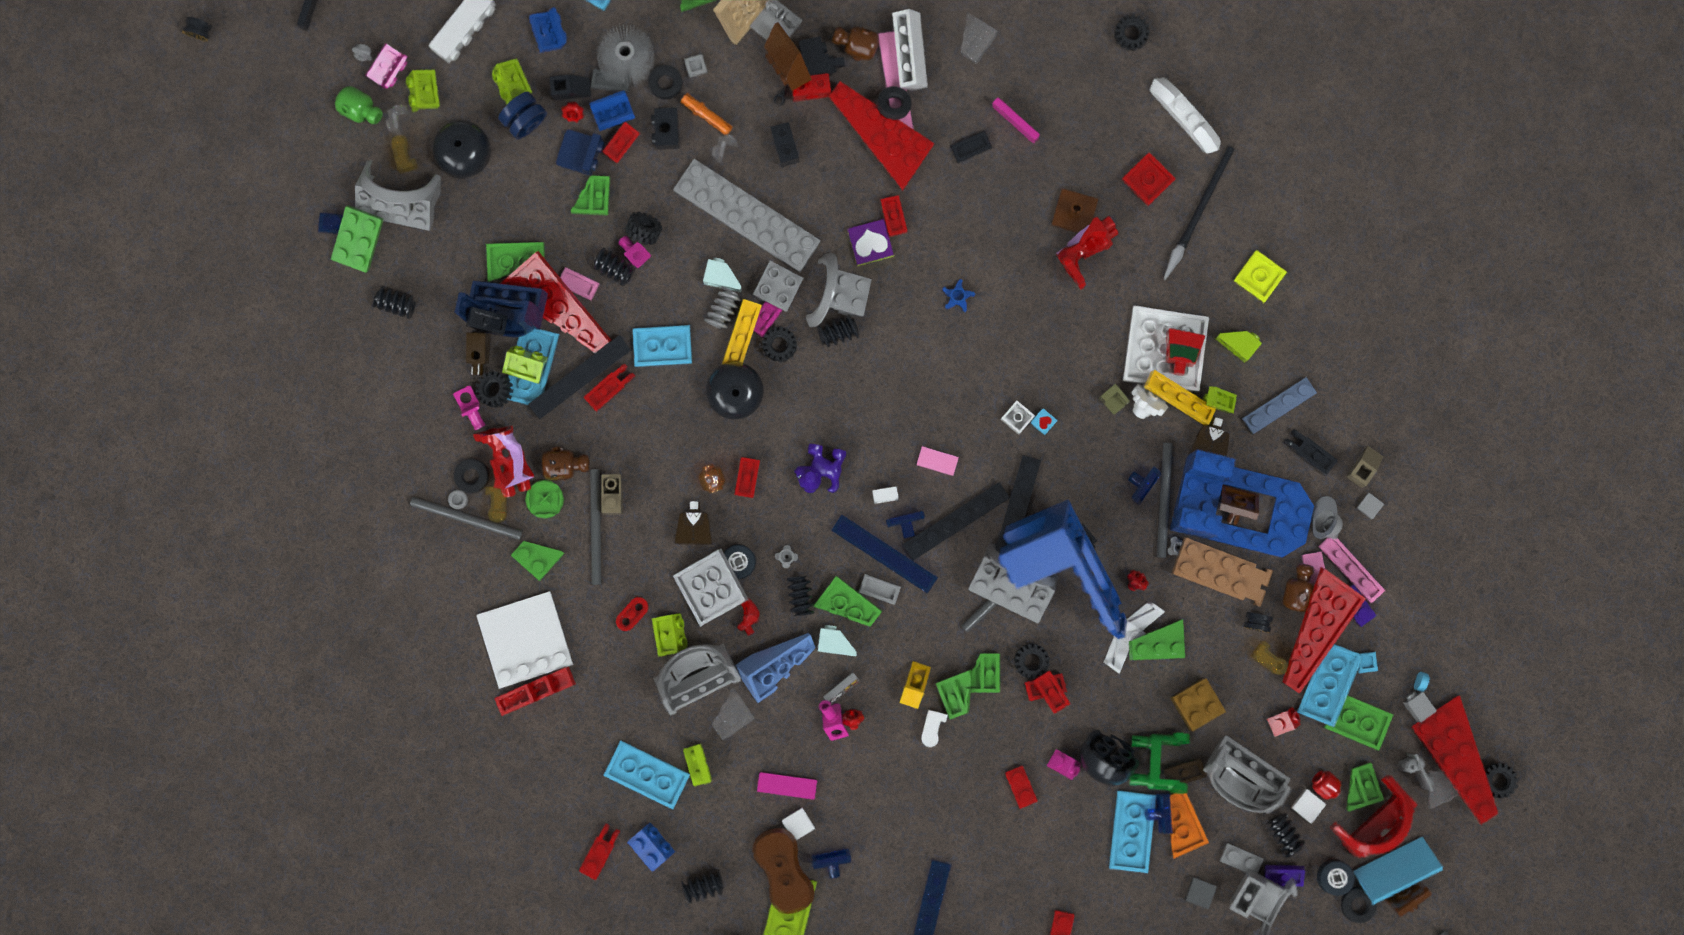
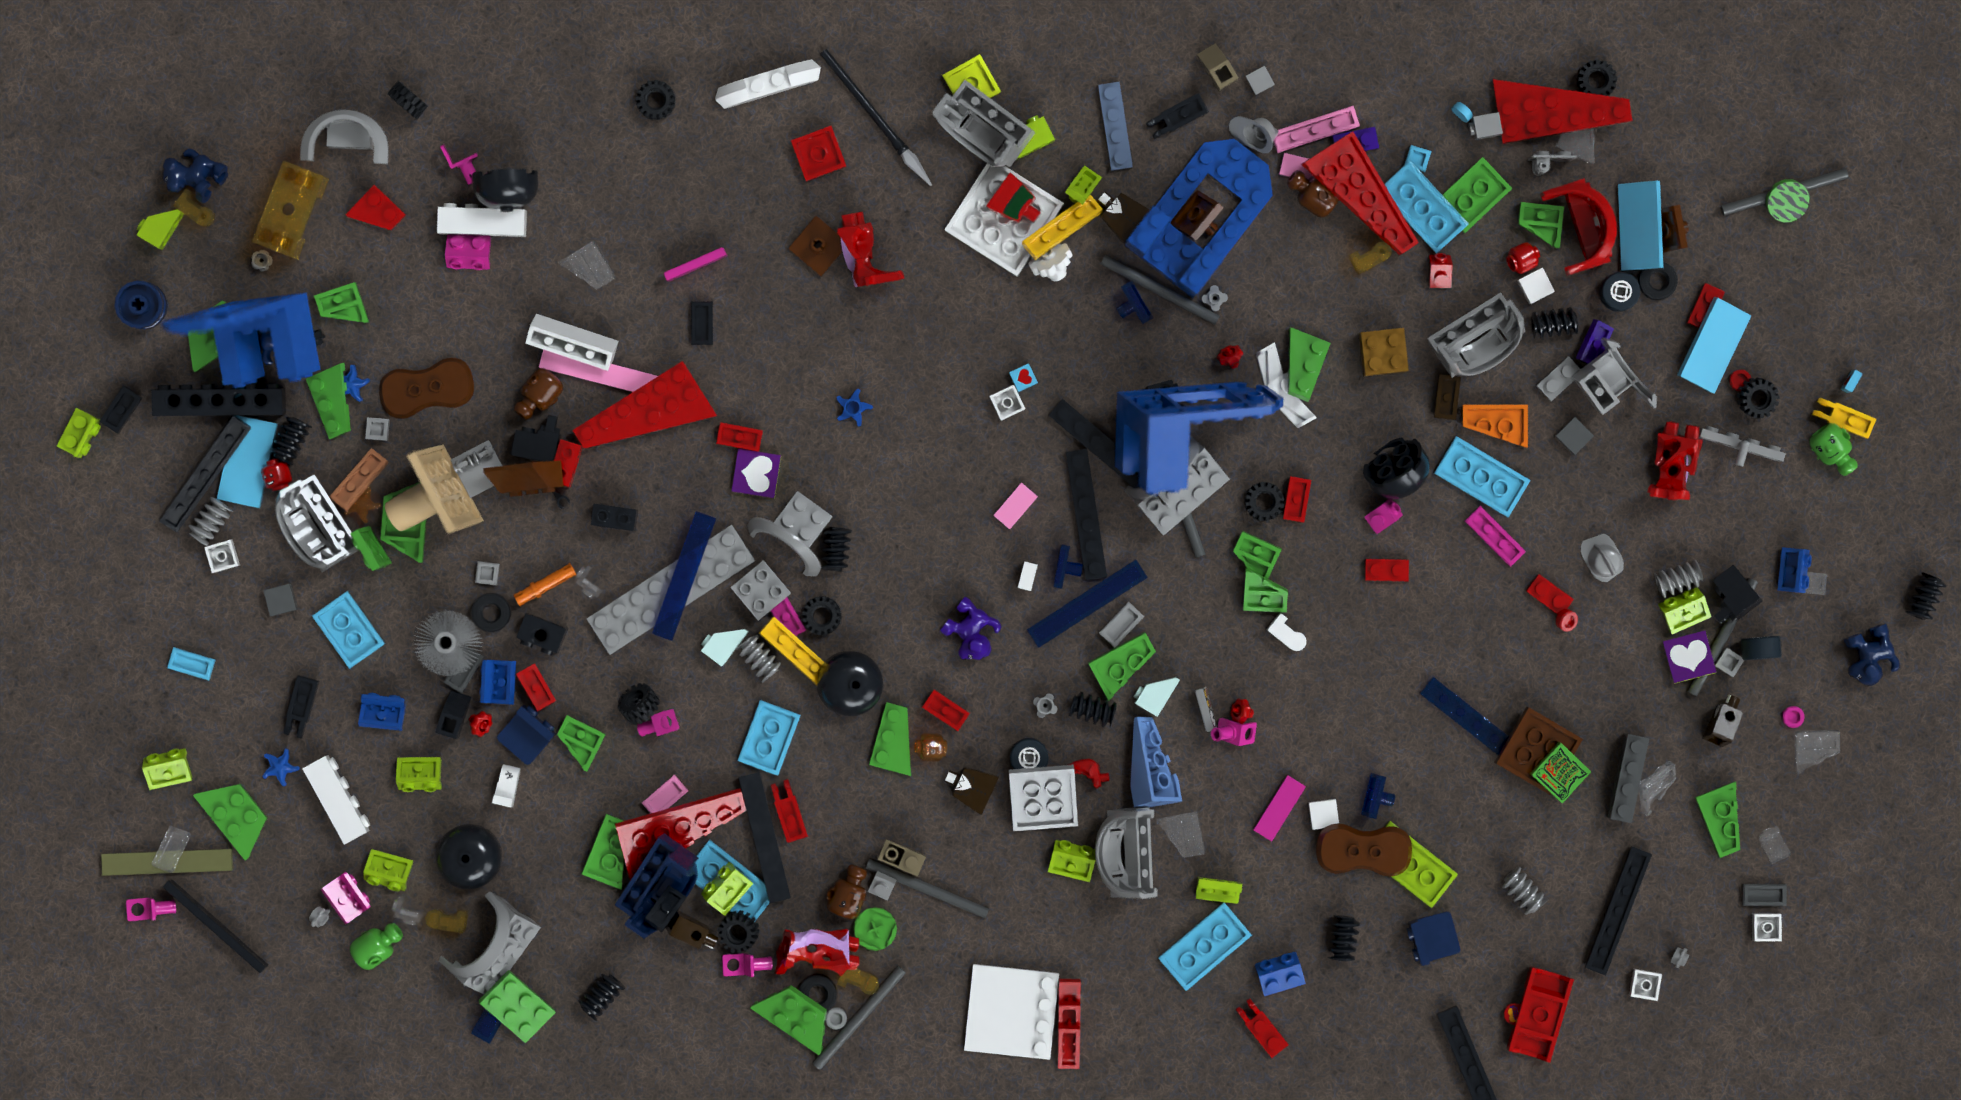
camera: 70 degrees left, 5 degrees up
(197, 28) = (217, 1079): black wheel -> none
(445, 465) = (795, 1015): none -> bright green wing
(522, 115) = (463, 778): dark blue wheel -> none
(531, 154) = (507, 786): none -> white leg
(536, 558) = (933, 963): bright green wing -> none
(582, 489) = (882, 885): none -> light grey plate
(614, 268) = (664, 752): black piece -> none
(632, 614) = (1035, 889): red plate -> none
(702, 446) = (892, 741): none -> bright green wing
(762, 219) = (684, 576): none -> clear blue tile
(894, 113) = (609, 381): black tyre -> none
(915, 685) = (1235, 631): yellow slope -> none
(1051, 692) = (1305, 496): red plate -> none
(1088, 864) = (1495, 536): none -> dark pink tile
(1114, 399) = (1033, 294): olive panel -> none
(1152, 779) = (1403, 414): green connector -> none
(1161, 813) = (1477, 440): clear blue tile -> none
(1221, 571) = (1259, 265): medium nougat hinge -> none
(1222, 296) = (977, 134): none -> light grey piece
(1258, 622) = (1328, 251): black wheel -> none

